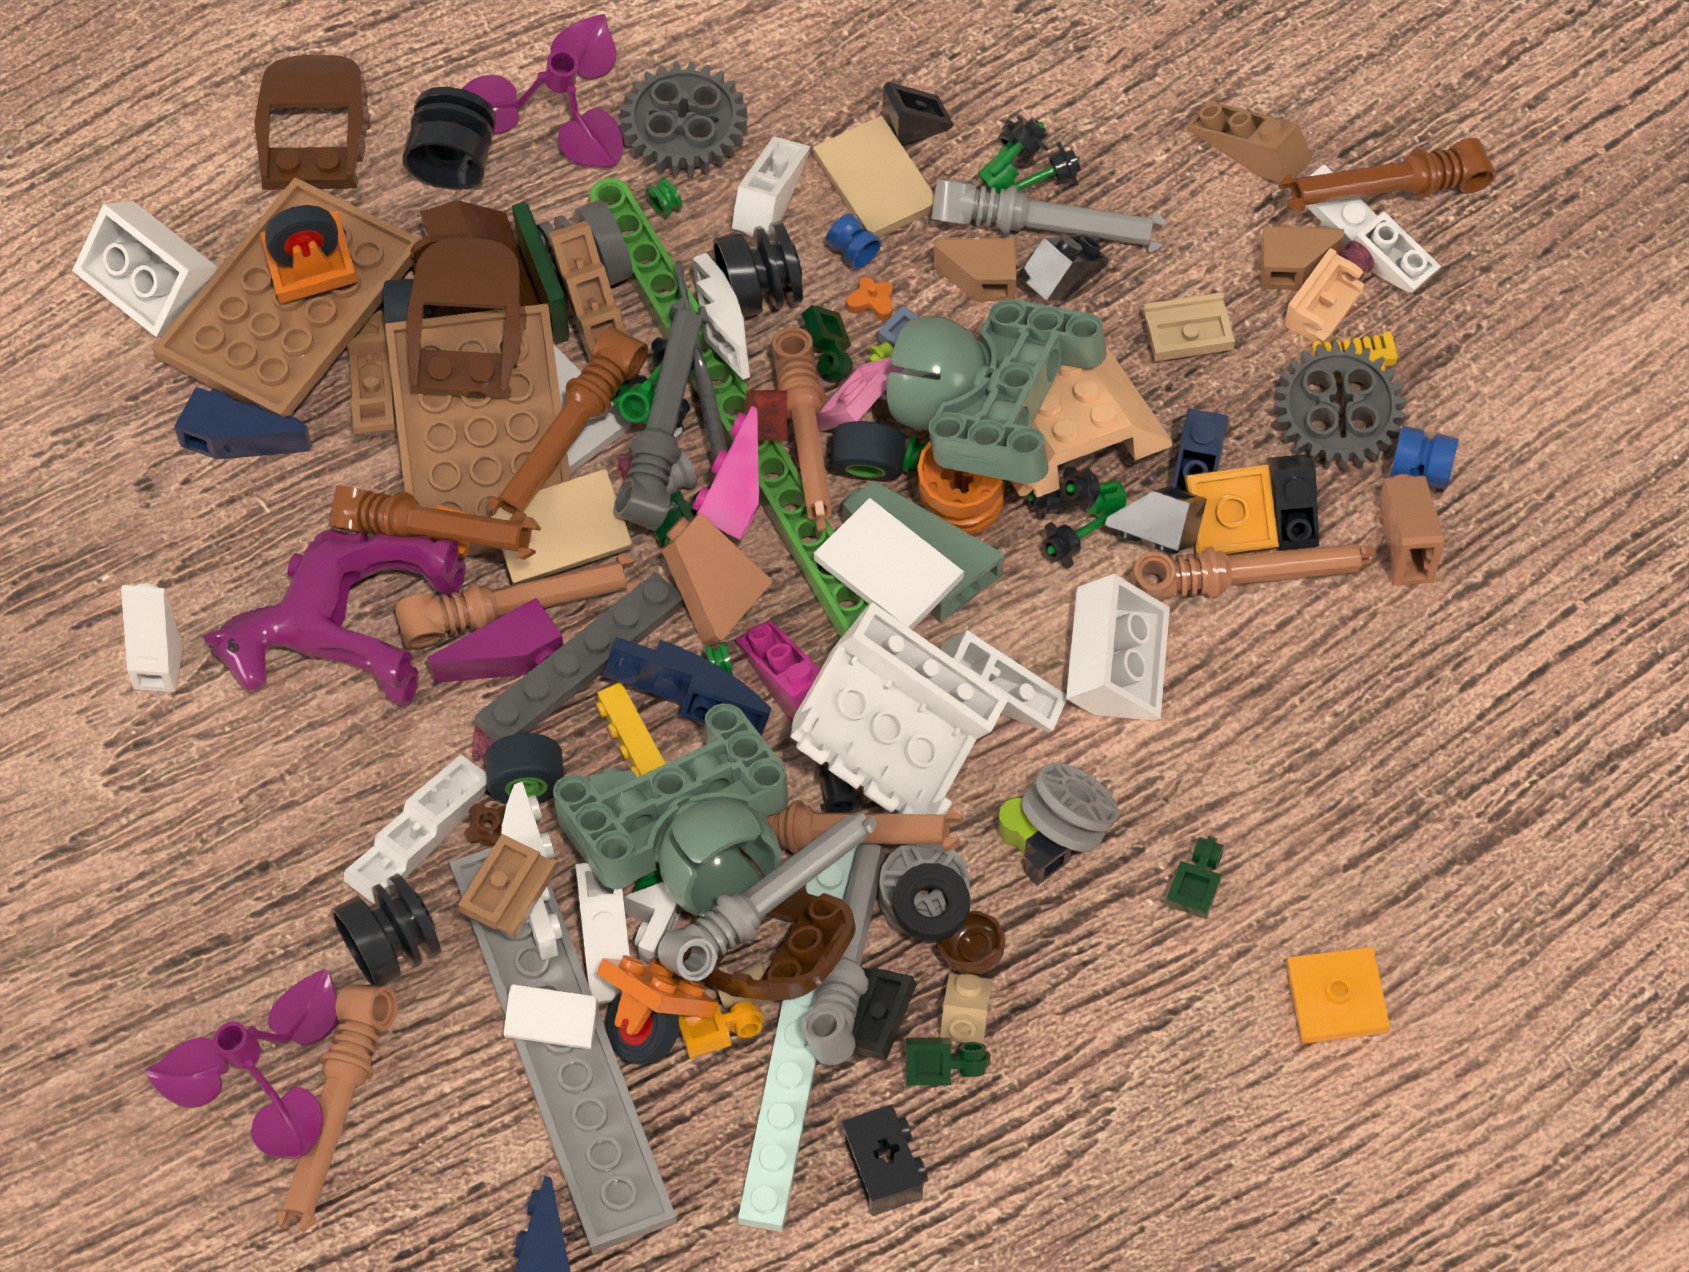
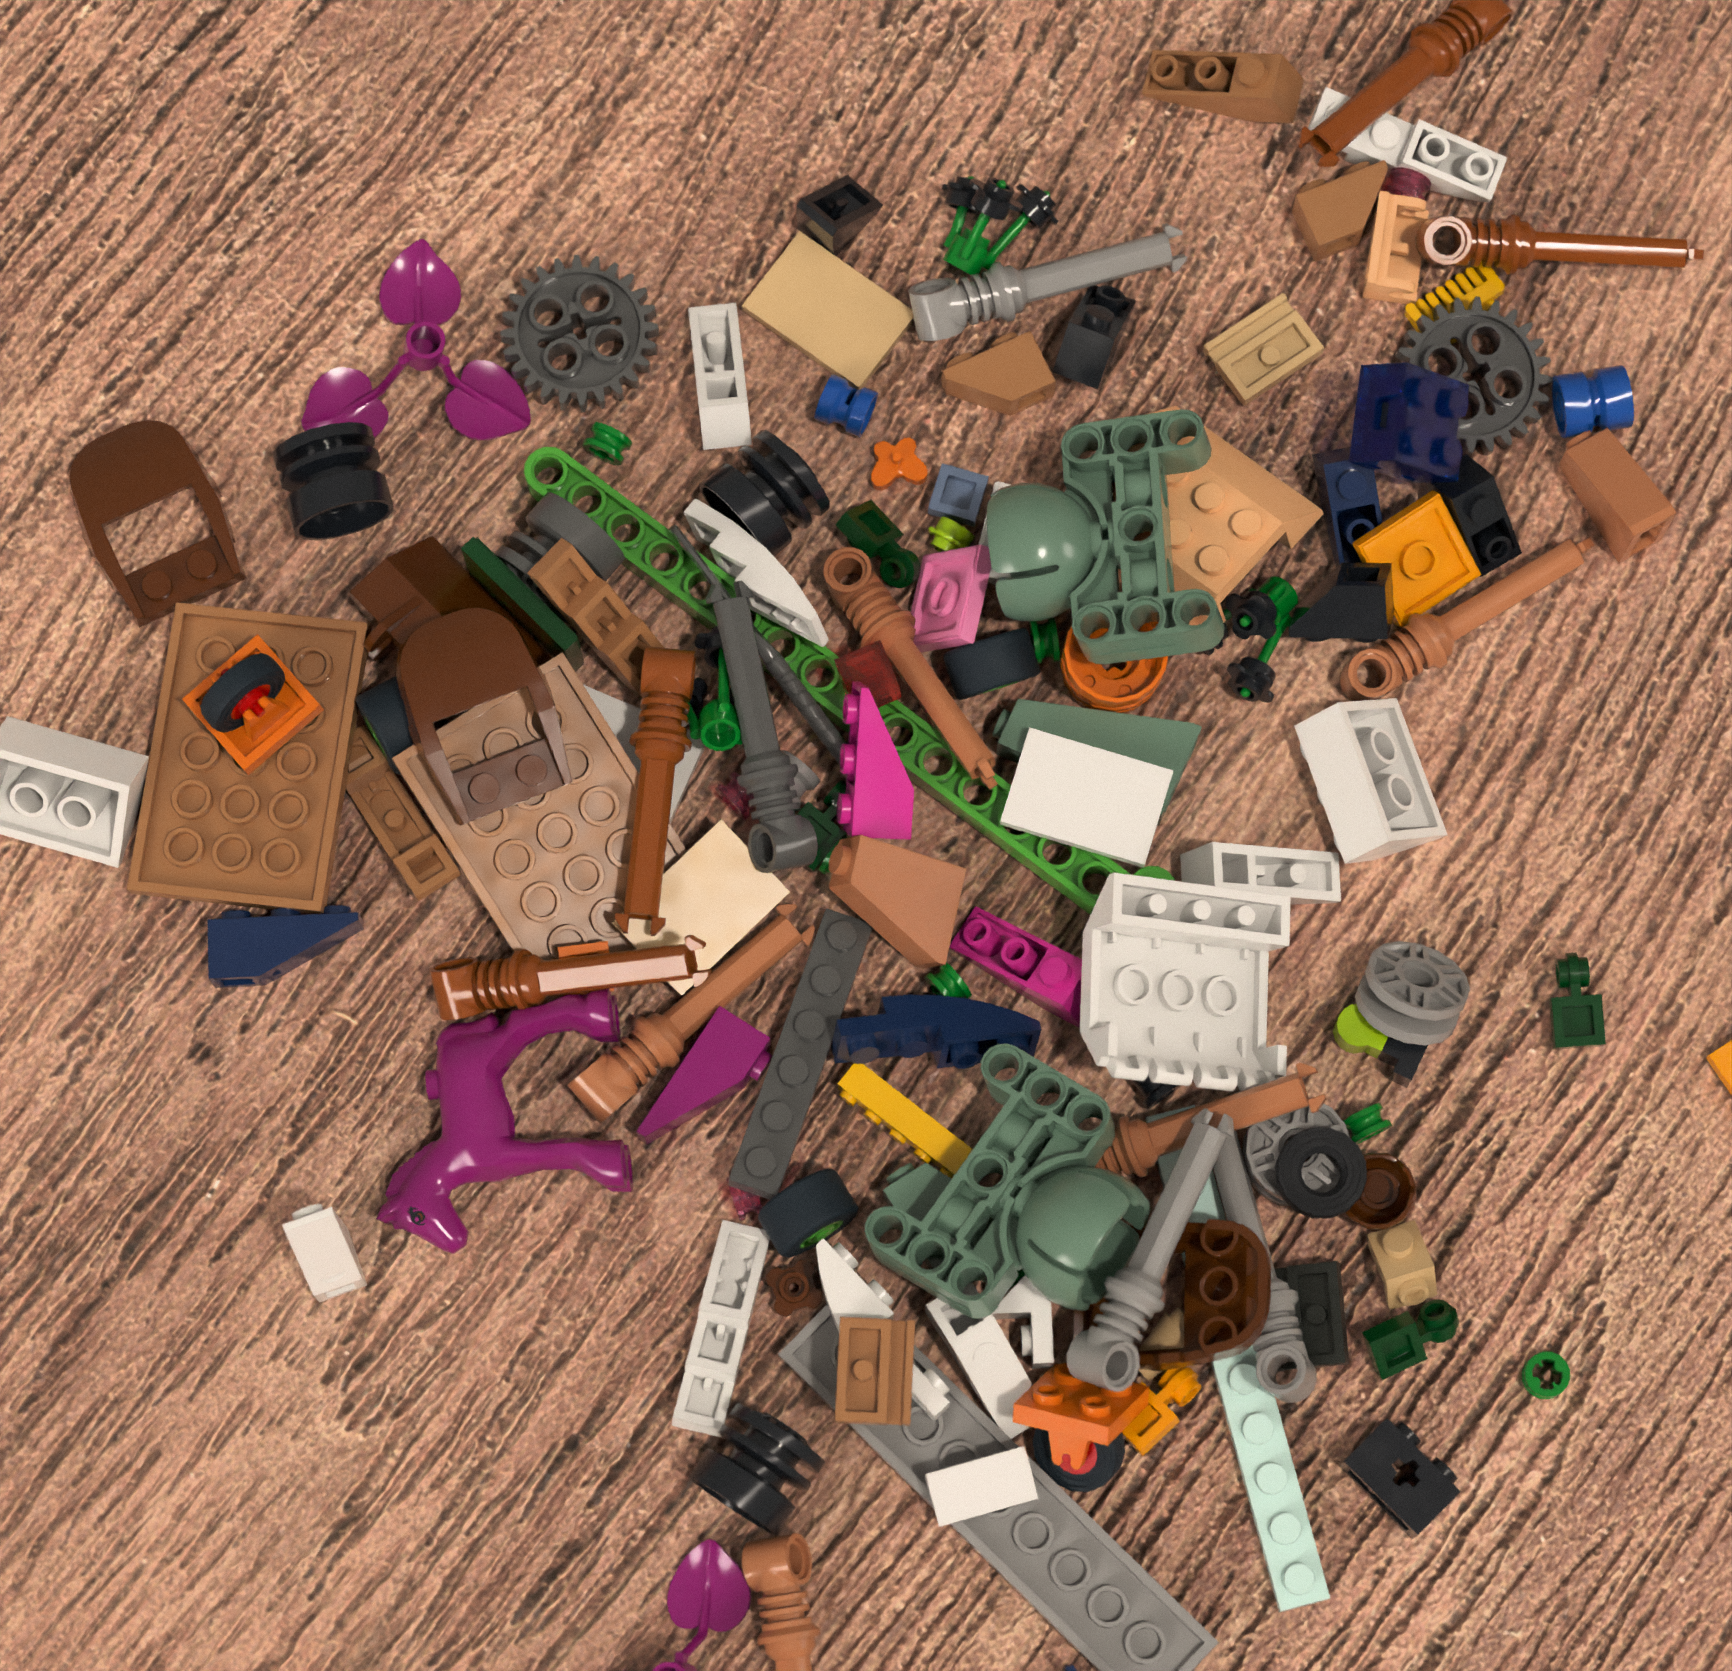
camera: 25 degrees left, 15 degrees up
(989, 893) = (1367, 1123): none -> green bush
(1042, 1152) = (1559, 1367): none -> green bush
(1266, 401) = (1408, 423): none -> clear blue piece
(1419, 327) = (1515, 244): none -> dark orange piece

